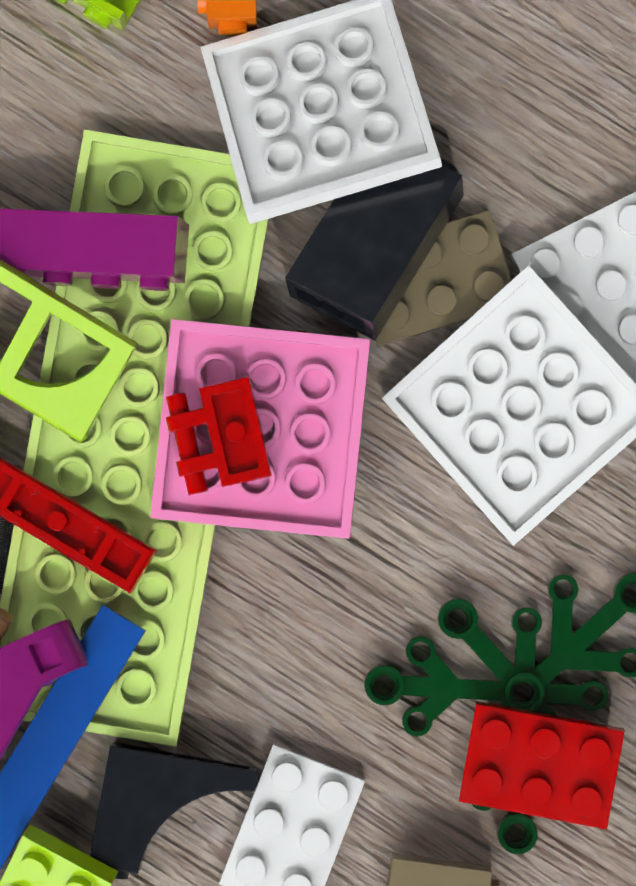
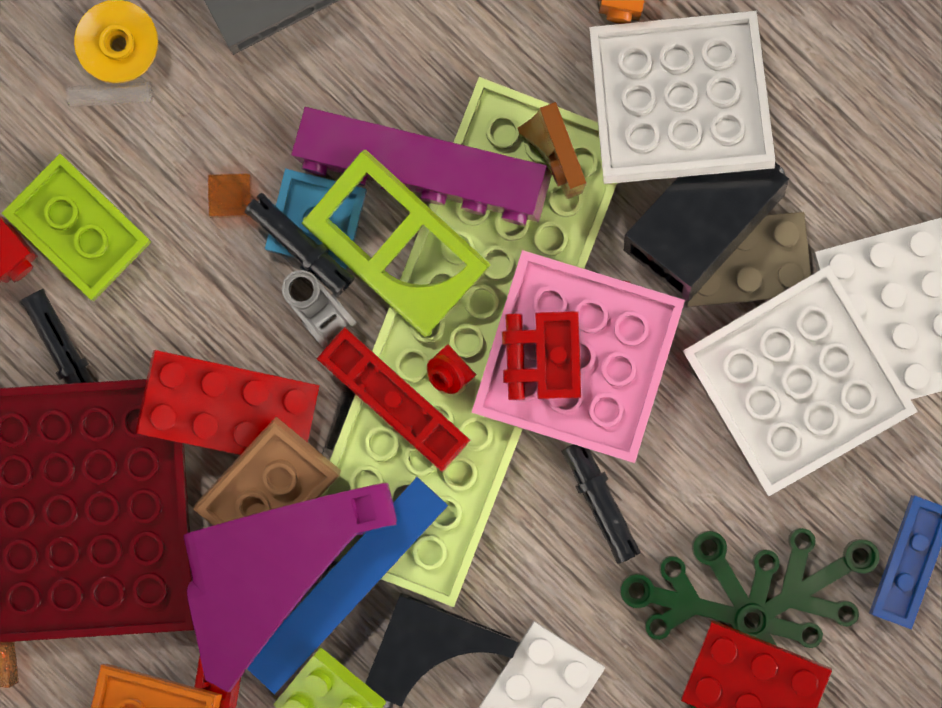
camera: 15 degrees right, 0 degrees up
(115, 475) = (449, 371): none -> red plate
(175, 182) = (551, 140): none -> dark orange plate
(323, 591) = (603, 506): none -> black pin

